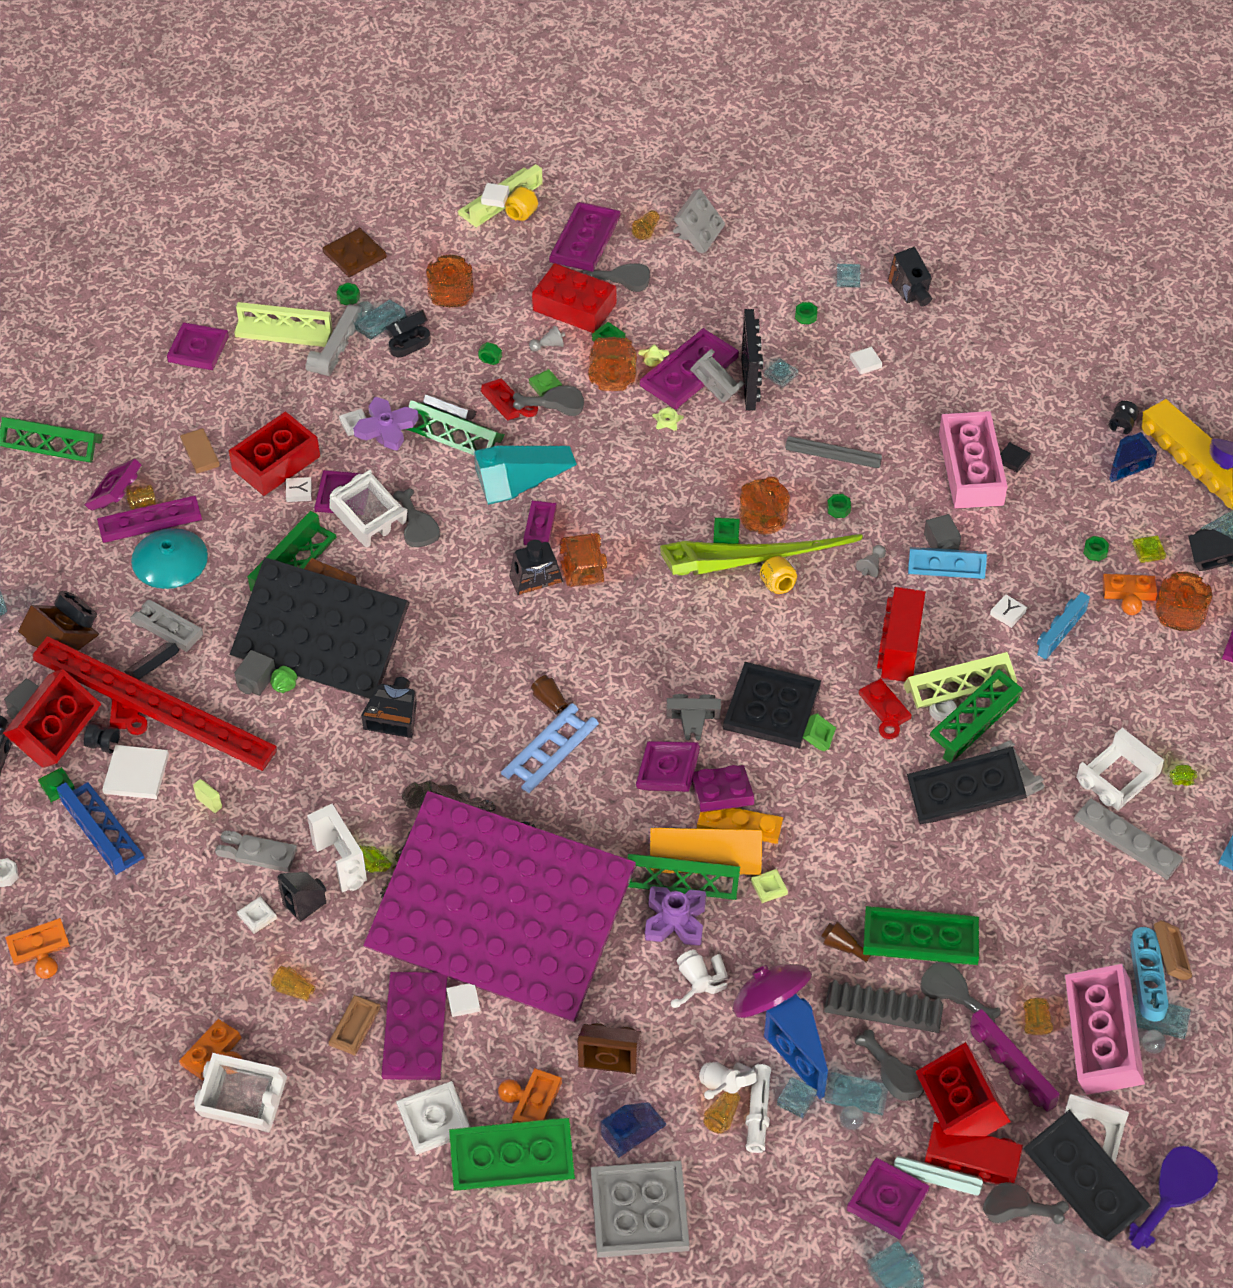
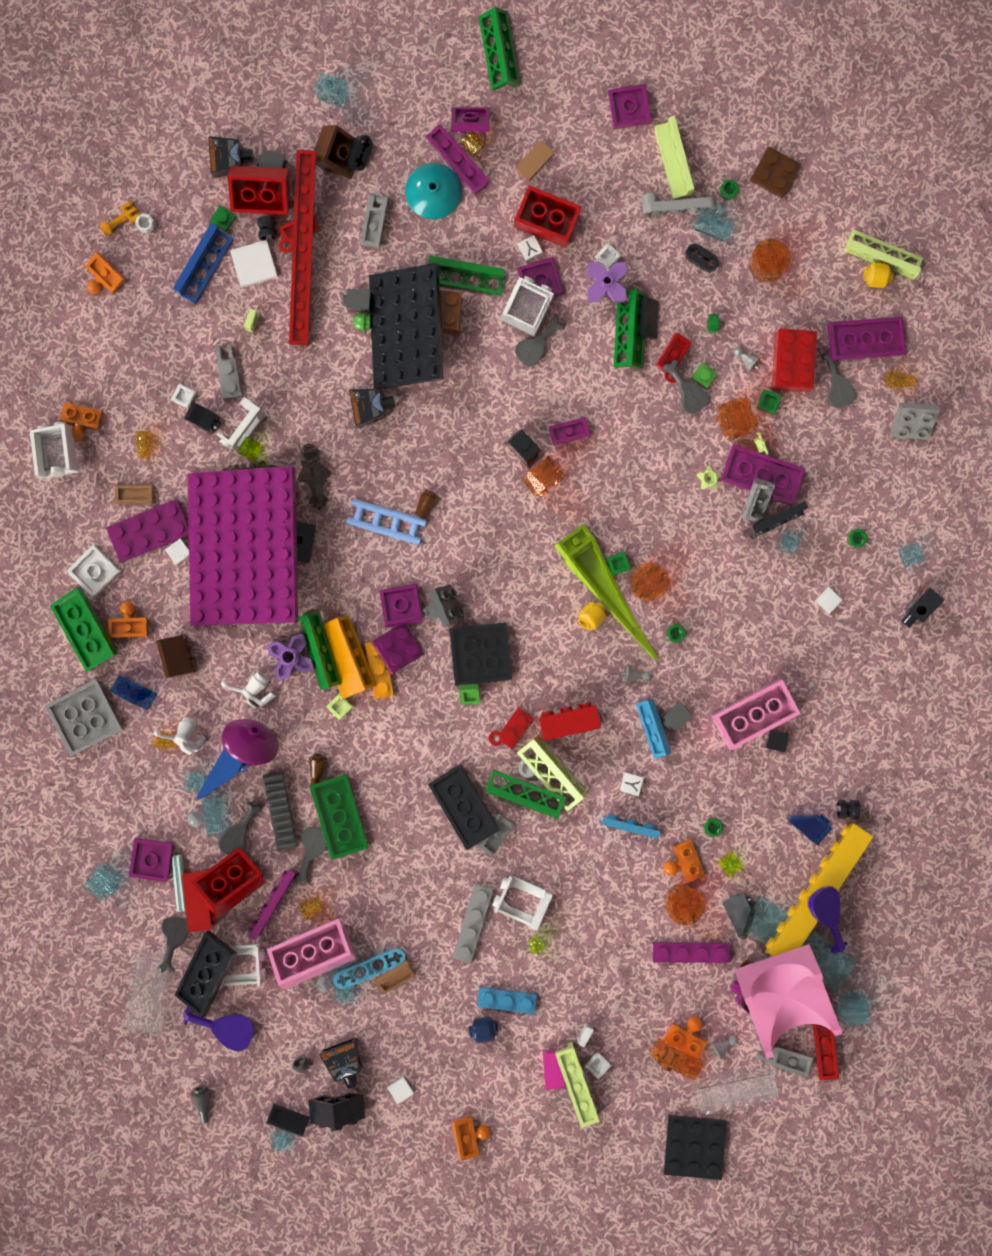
camera: 65 degrees right, 35 degrees up
(152, 660) = (340, 227): black tile -> none
(406, 323) = (715, 247): black beam -> none
(495, 195) = (870, 253): white tile -> none
(514, 469) = (611, 394): teal wedge -> none
(757, 1119) = (170, 764): white pin -> none
(833, 452) = (726, 610): dark grey axle -> none

